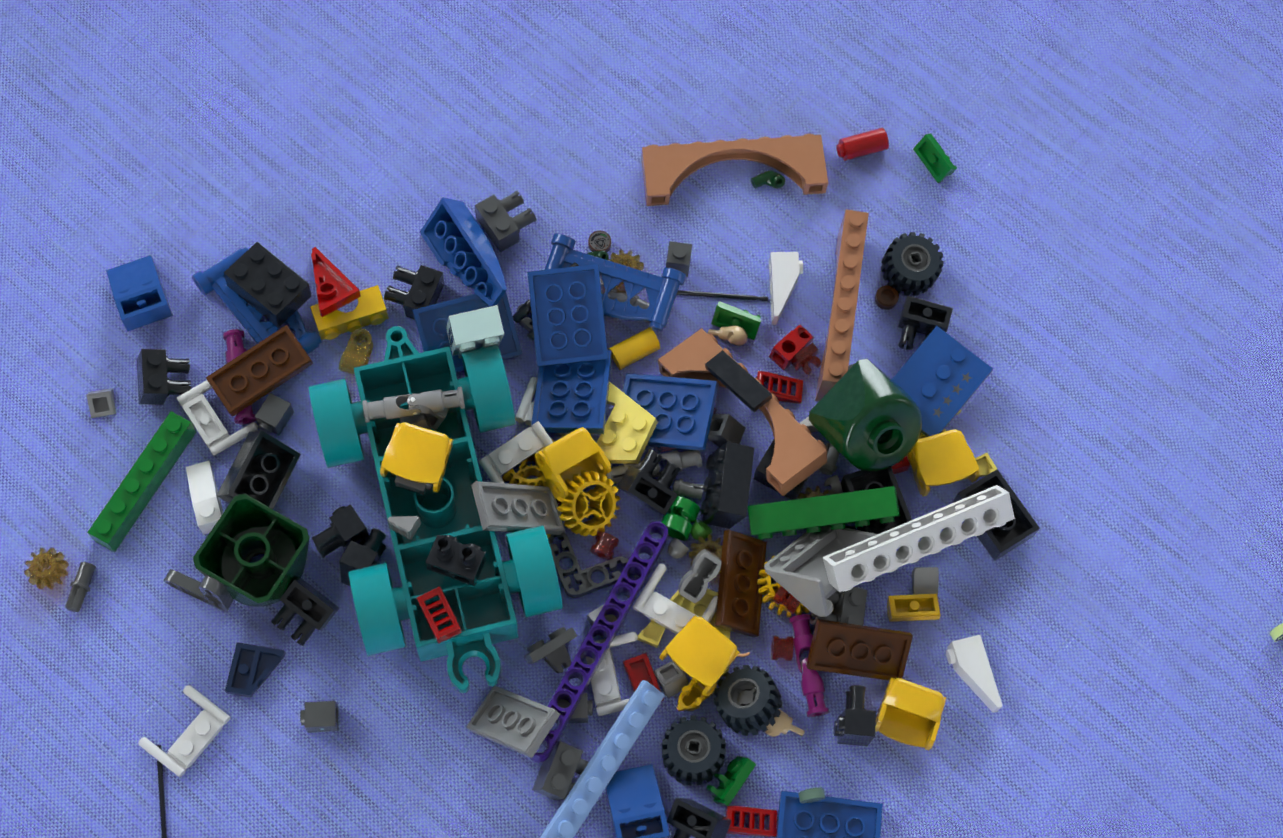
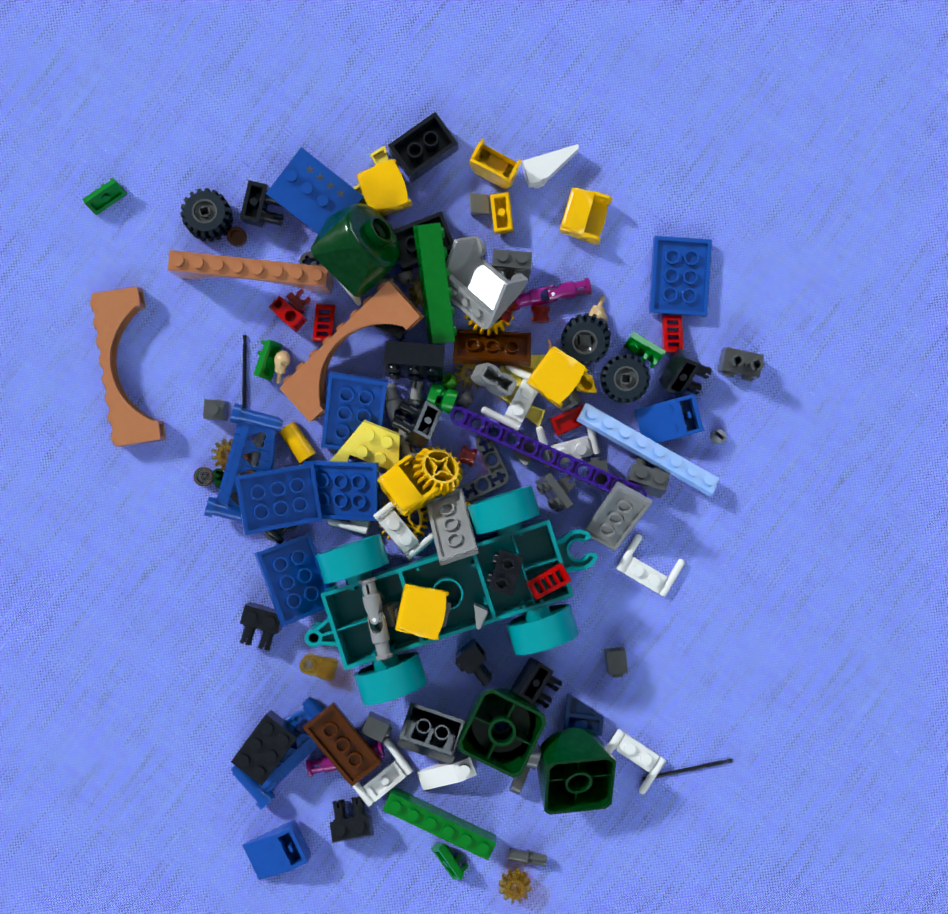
camera: 90 degrees left, 20 degrees up
(101, 403) = (373, 864): light grey slope -> none
(102, 484) = (449, 862): none -> green plate
(185, 642) = (575, 772): none -> dark green piece
(332, 285) = (264, 693): red wing -> none
(362, 556) = (498, 643): black brick -> none
(369, 311) = (280, 660): yellow arch -> none
(431, 766) = (645, 574): none -> white plate
(464, 249) = (223, 587): blue wedge -> none
(474, 329) = (306, 574): light aqua brick -> none
(498, 224) = (197, 559): dark grey brick -> none
(724, 429) = (367, 364): dark grey brick -> none
(738, 381) = (328, 355): black tile -> none
(768, 178) = (133, 337): dark green arm -> none
(783, 277) = (223, 322): white slope -> none
(811, 795) = (655, 288): sand green tile -> none
(855, 724) = (598, 258): black brick -> none
(858, 650) = (542, 254): reddish brown tile -> none
(862, 144) = (95, 258): red brick -> none
(974, 598) = (494, 166): none -> yellow piece
(993, 501) = (455, 206): white brick -> none

